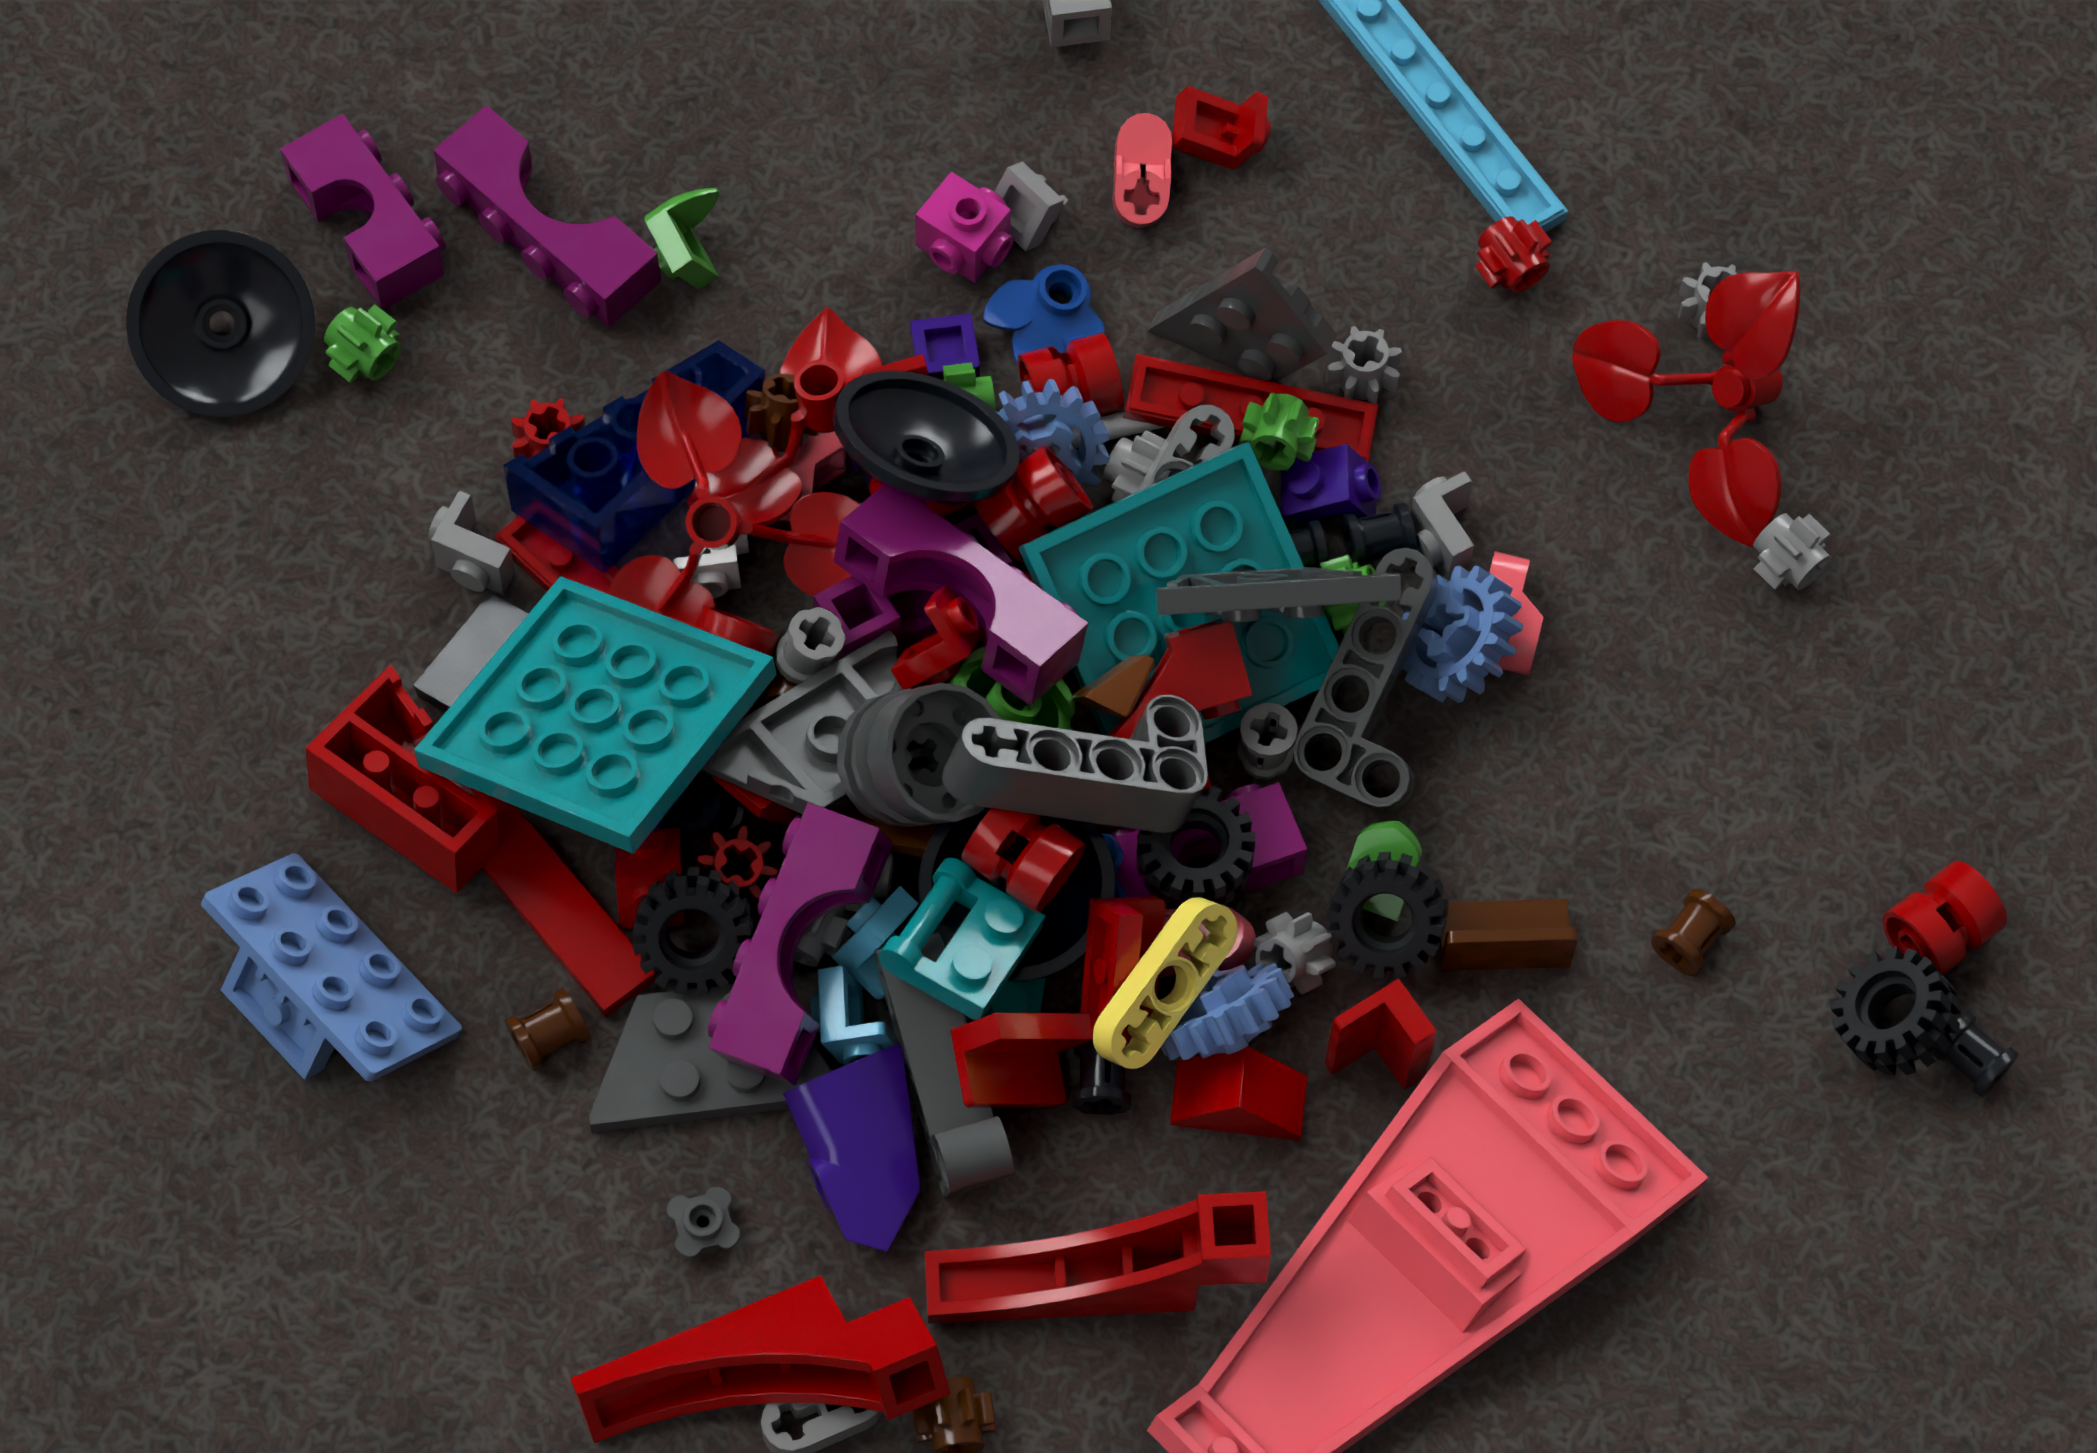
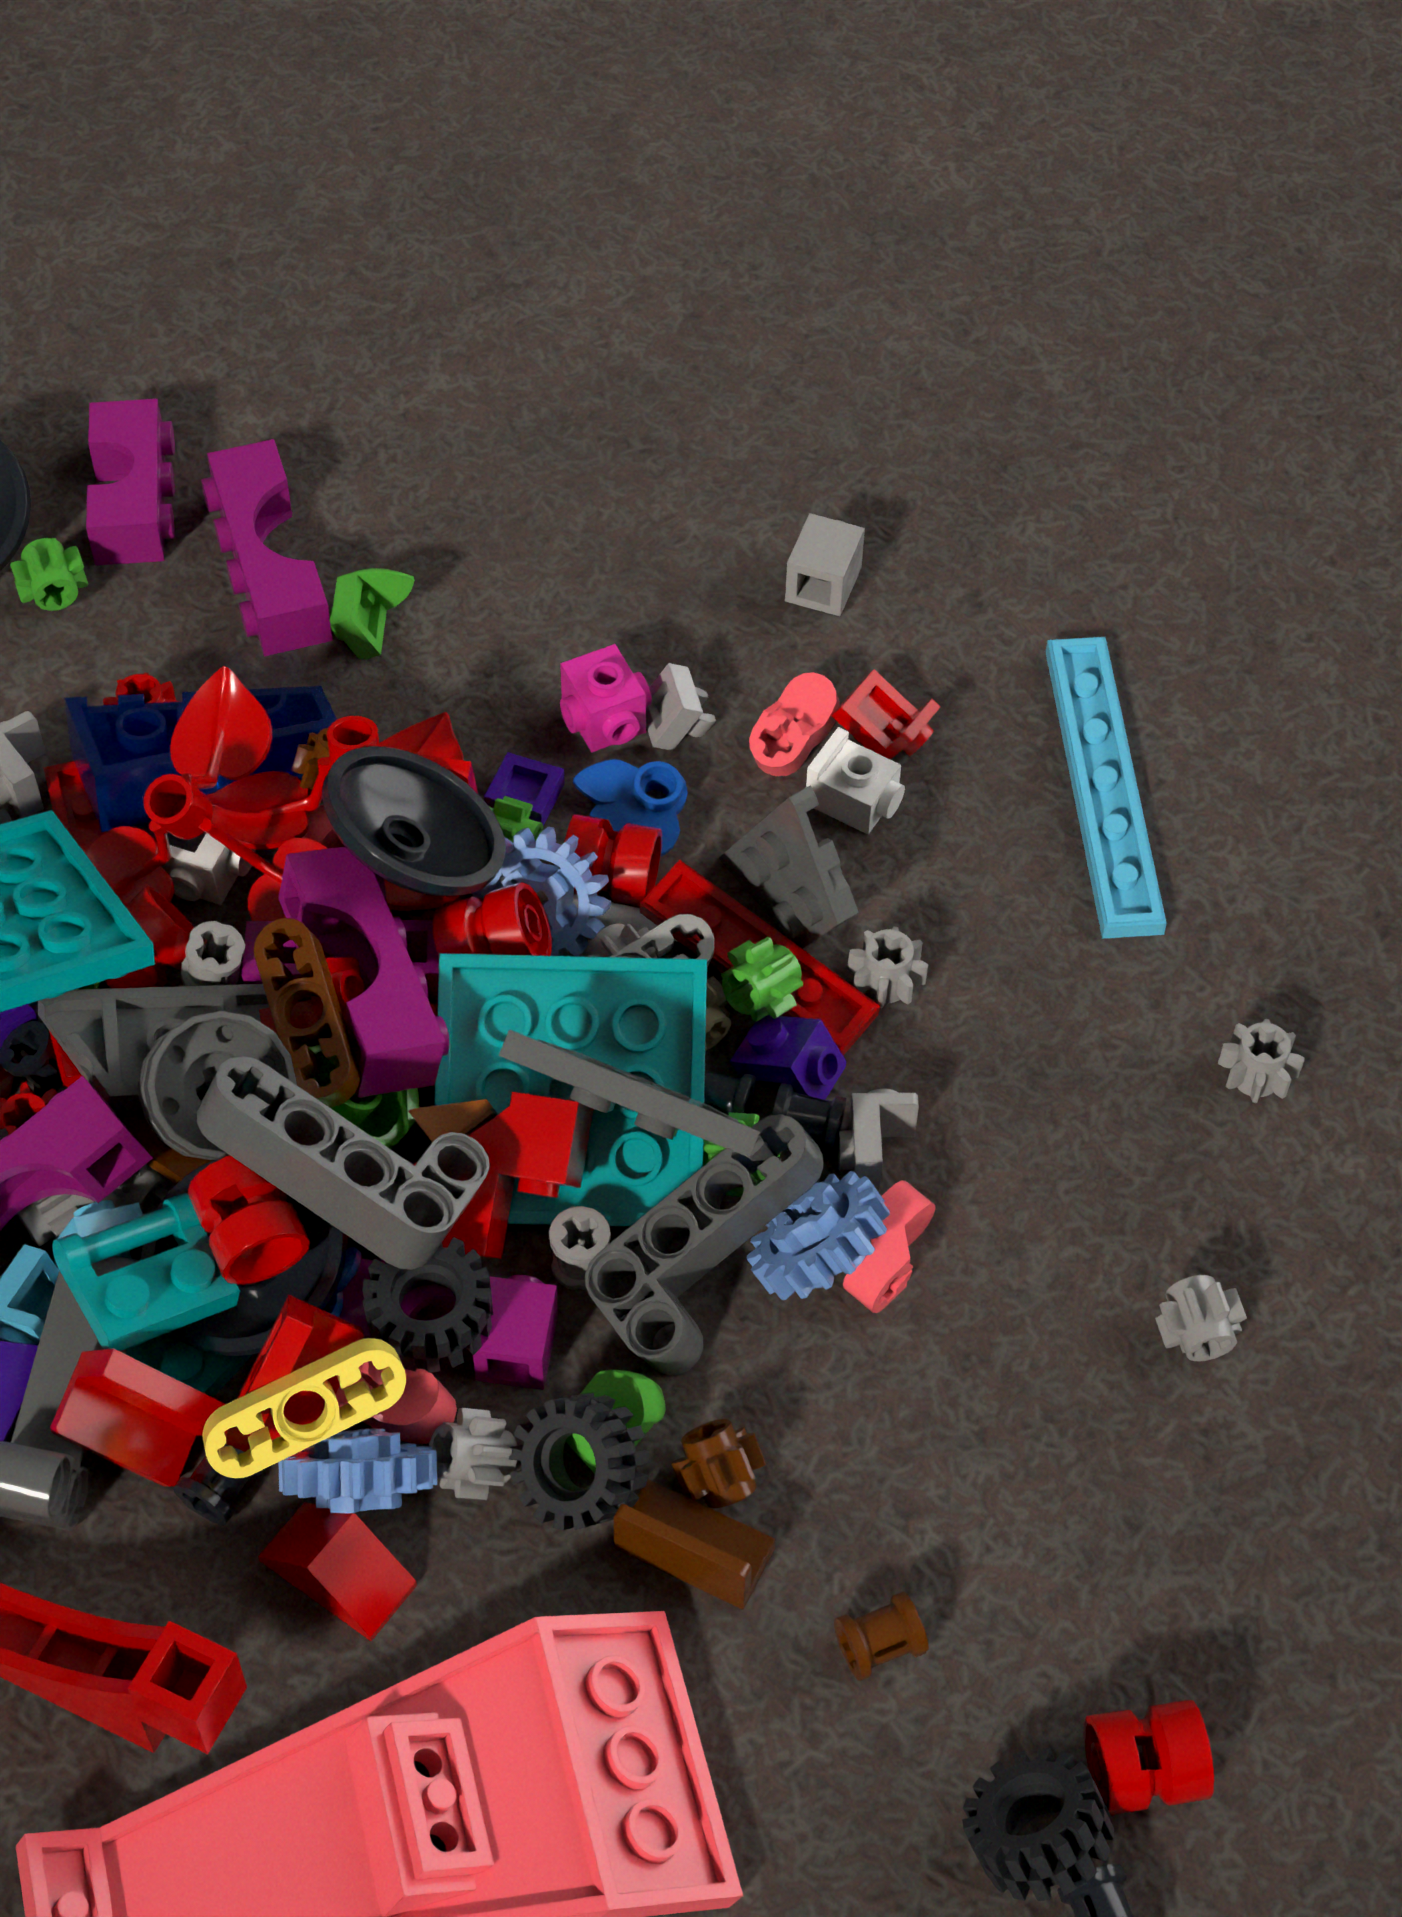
camera: 30 degrees right, 10 degrees down
(934, 608) = (284, 993): none -> reddish brown beam
(1230, 205) = (854, 783): none -> white brick
(1390, 1025) = (487, 1558): red panel -> none
(1490, 861) = (718, 1463): none -> reddish brown gear
(1513, 254) = (1088, 934): red gear -> none
(1756, 324) = (1253, 1065): red plant -> none

